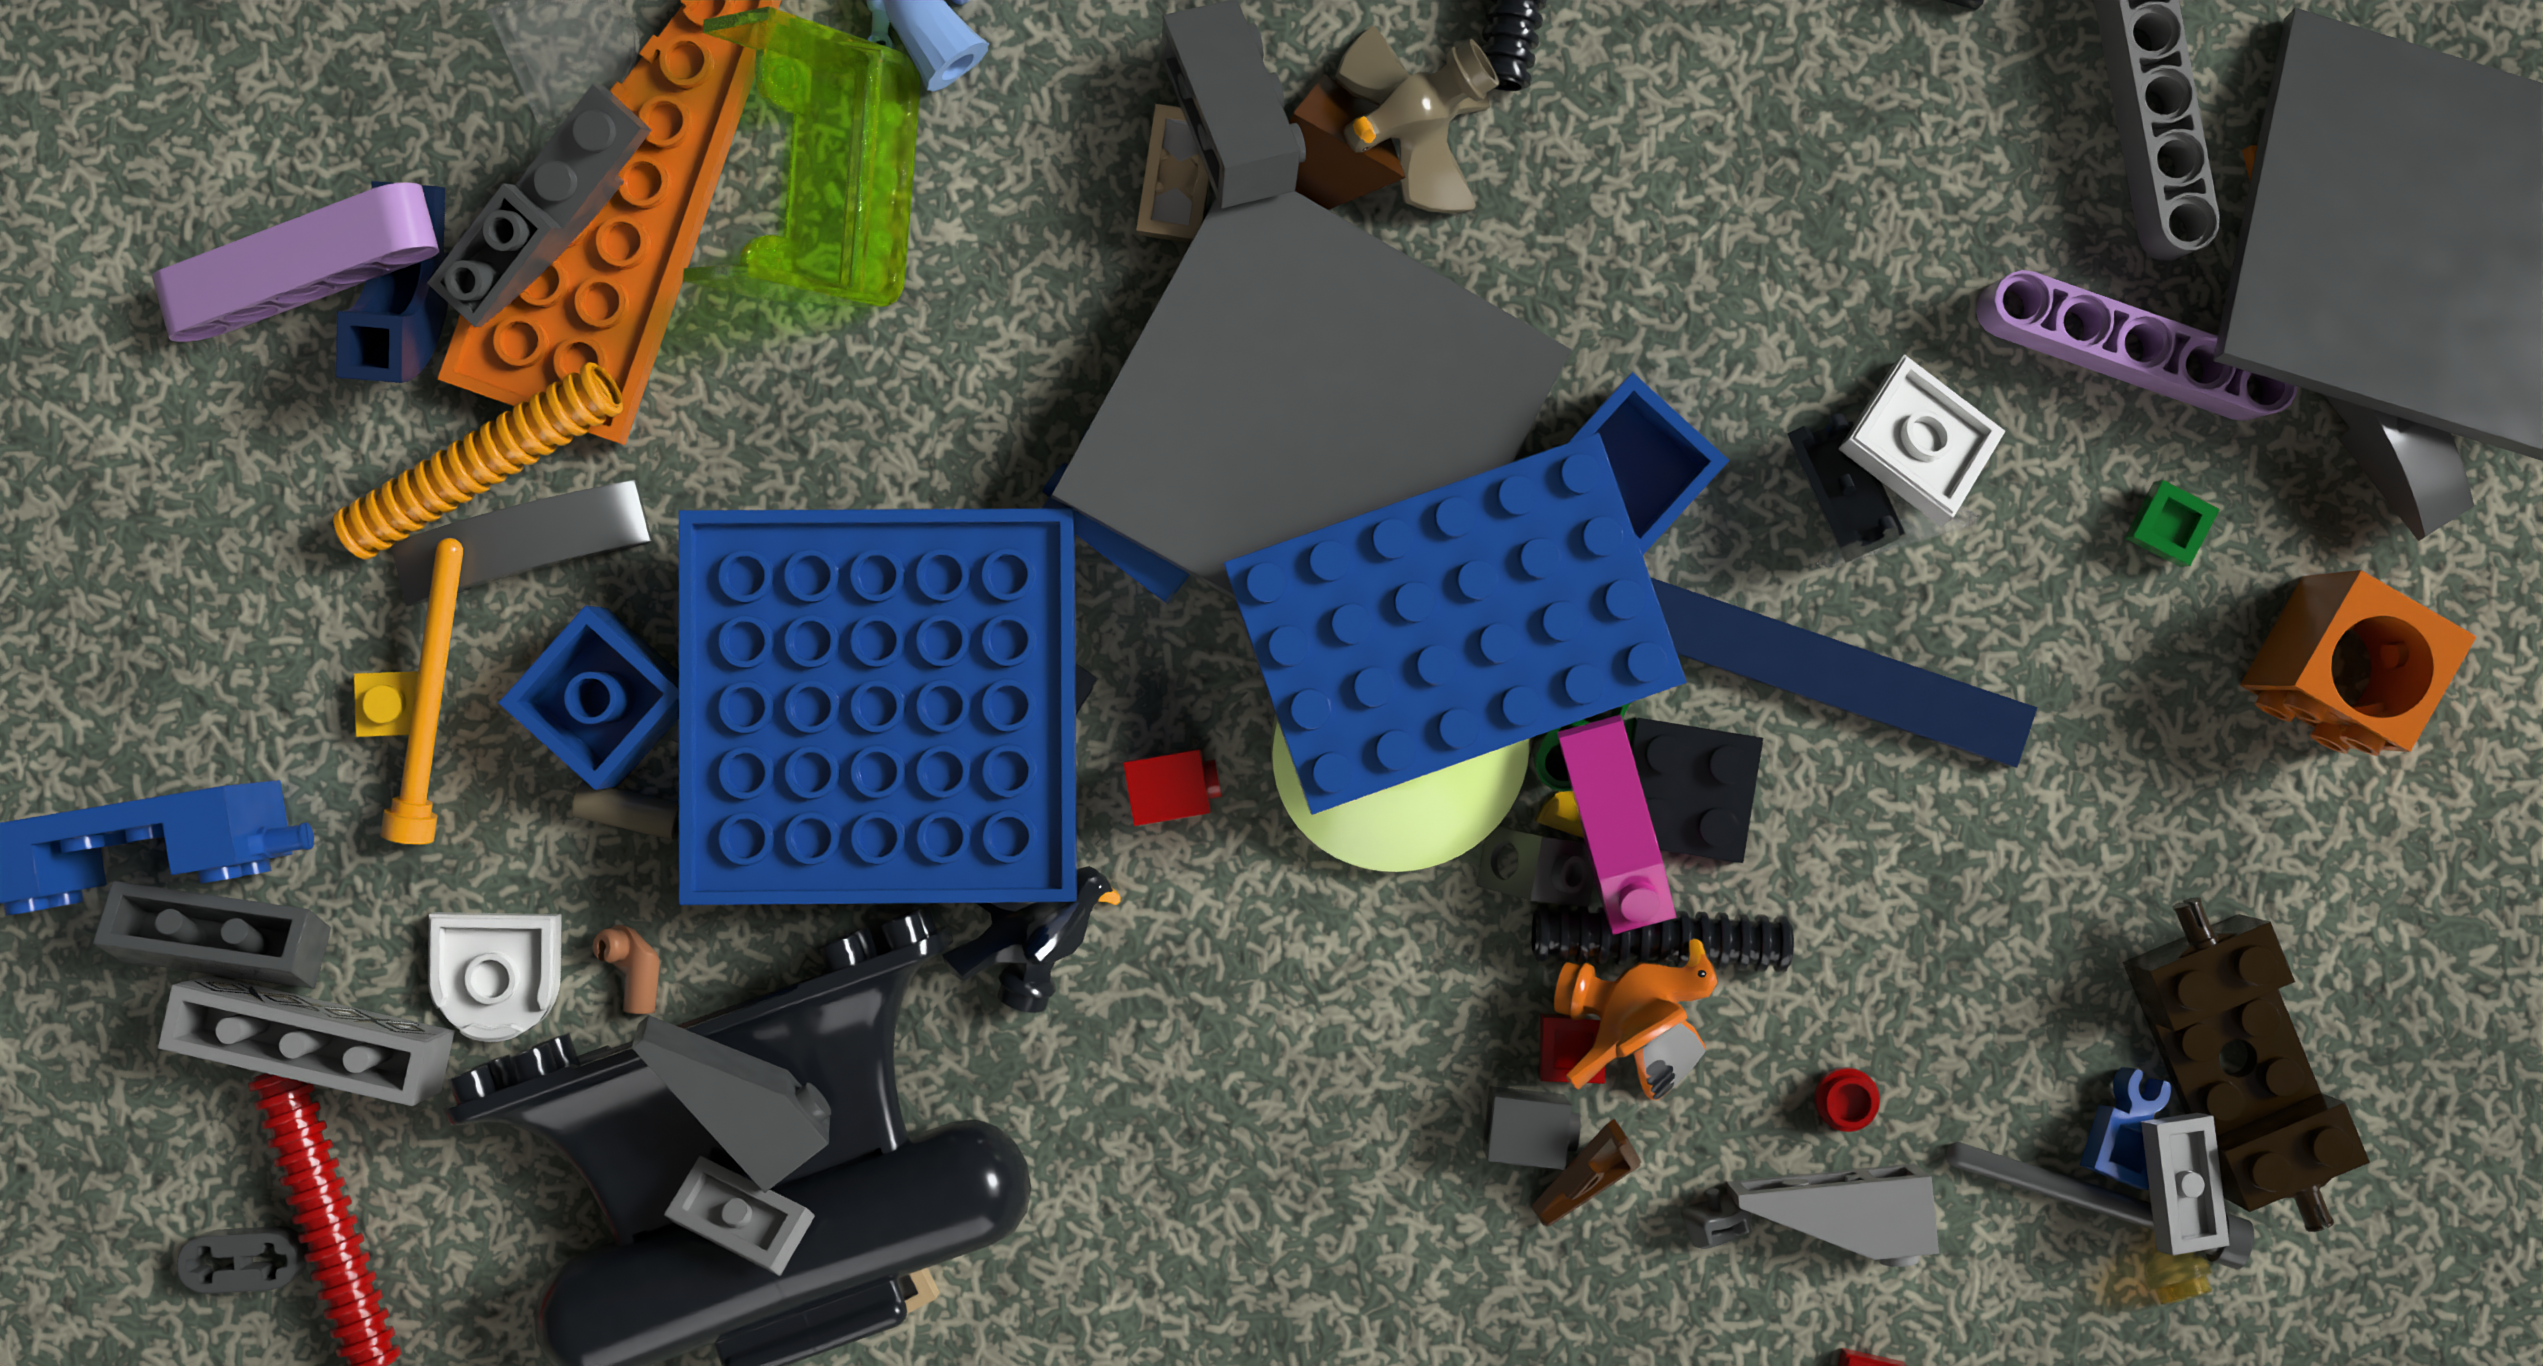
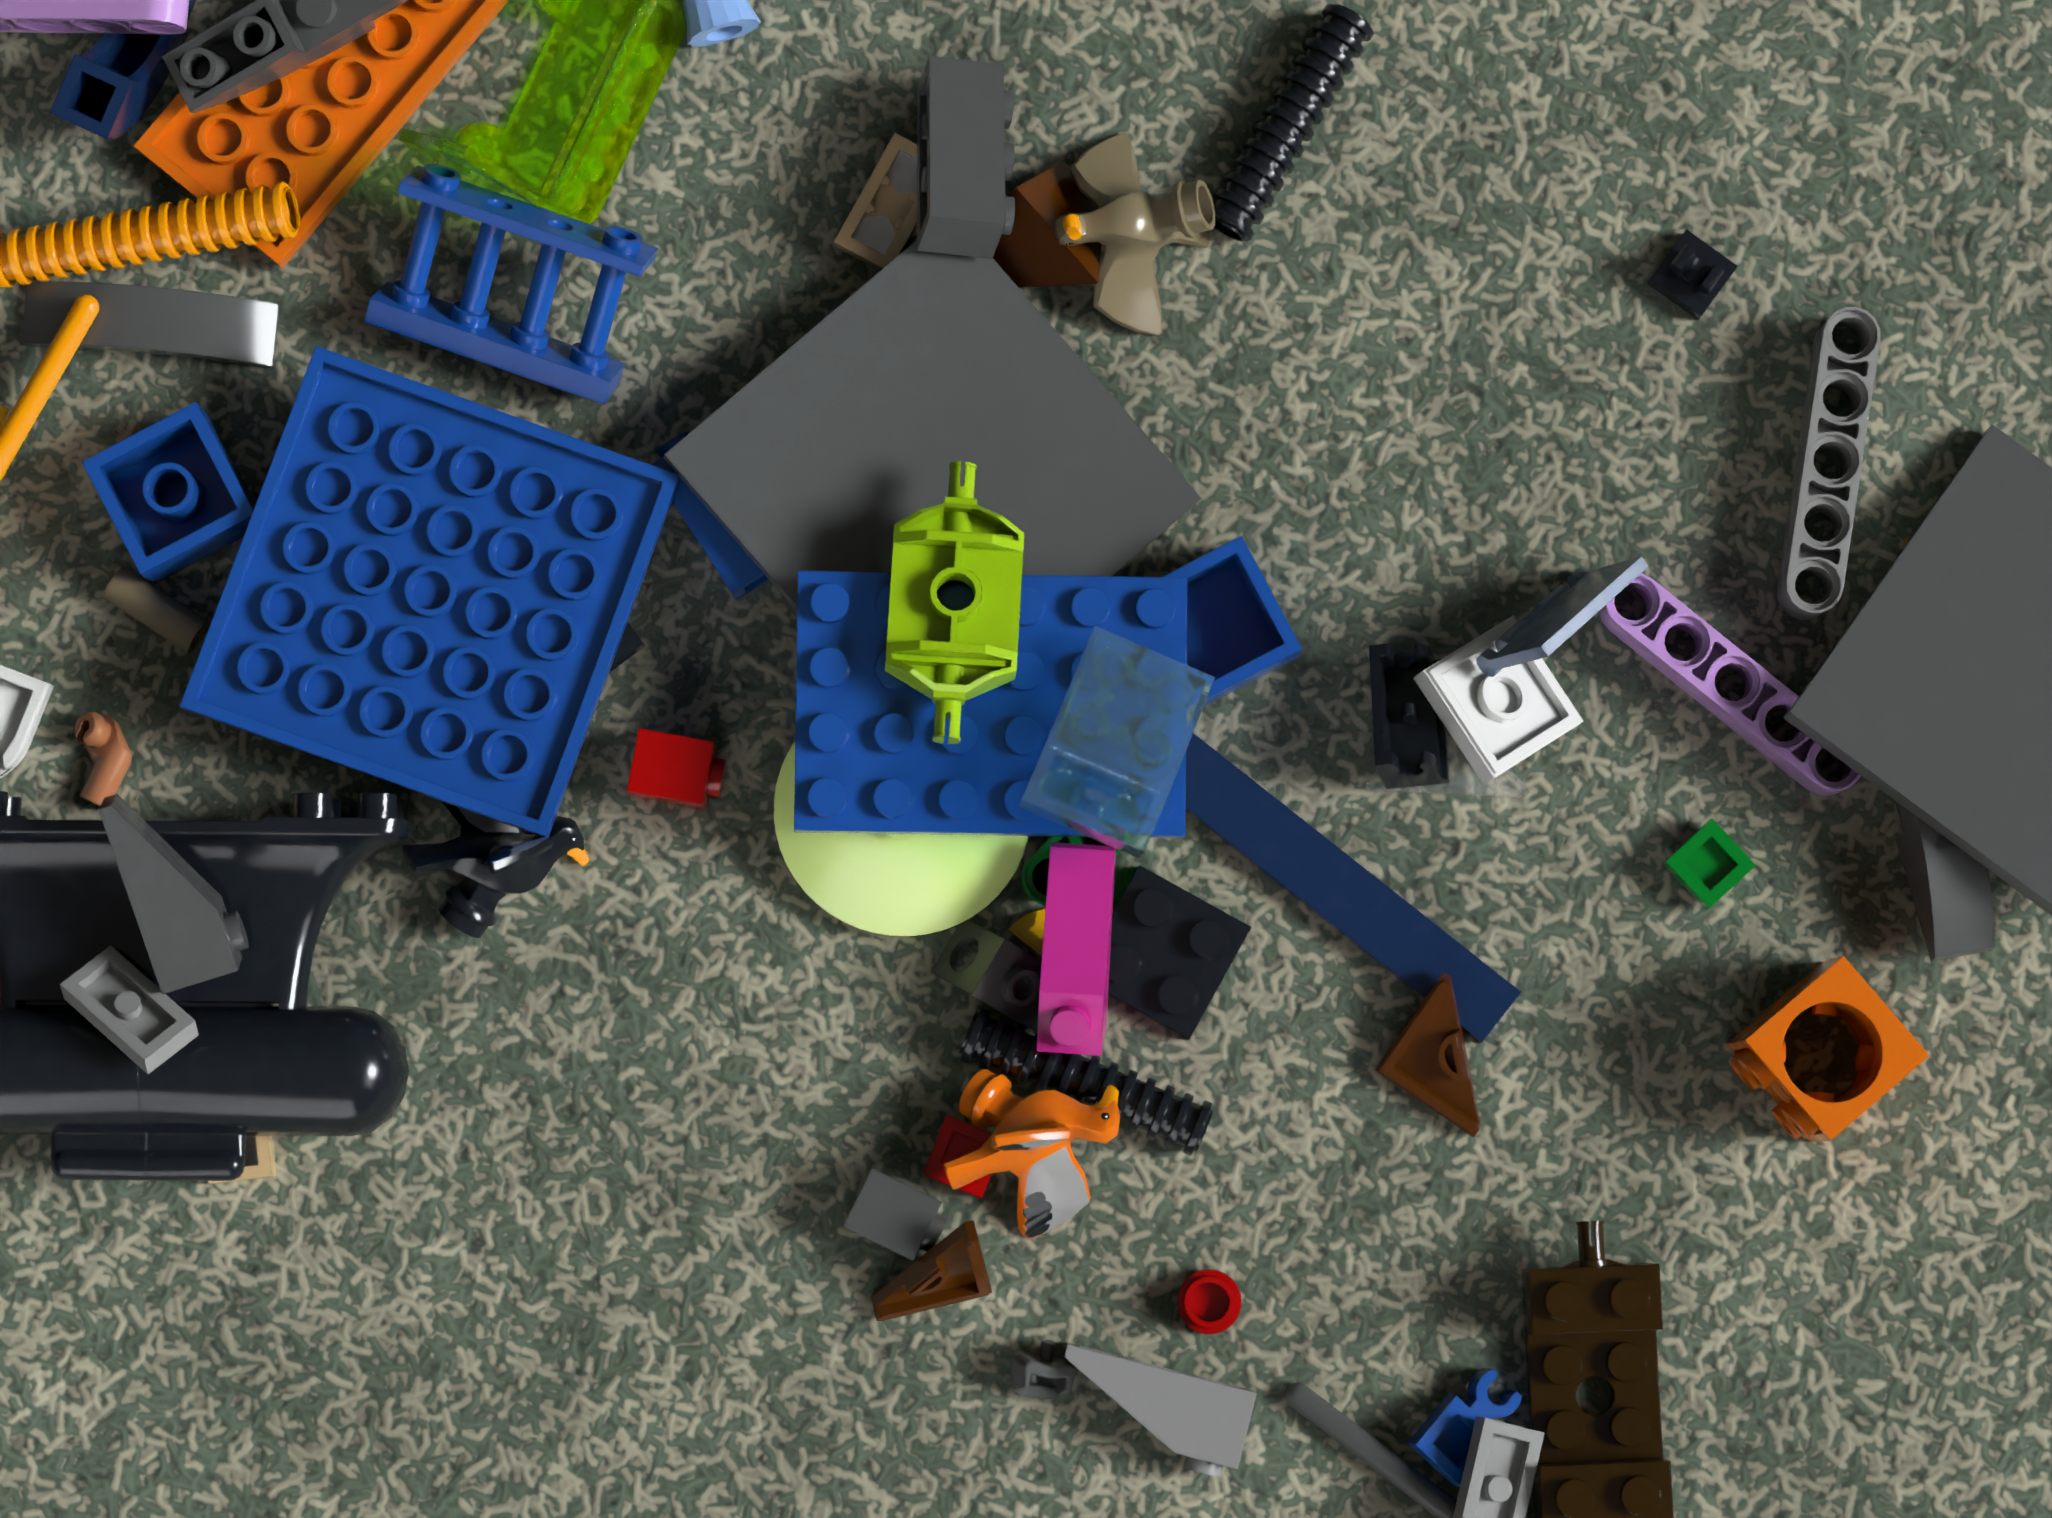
camera: 15 degrees right, 5 degrees down
(817, 436) = (467, 325): none -> blue fence
(1378, 590) = (947, 650): none -> lime plate
(1598, 620) = (1117, 742): none -> clear light blue slope
(1964, 338) = (1559, 615): none -> sand blue piece
(1975, 800) = (1432, 1059): none -> reddish brown tile

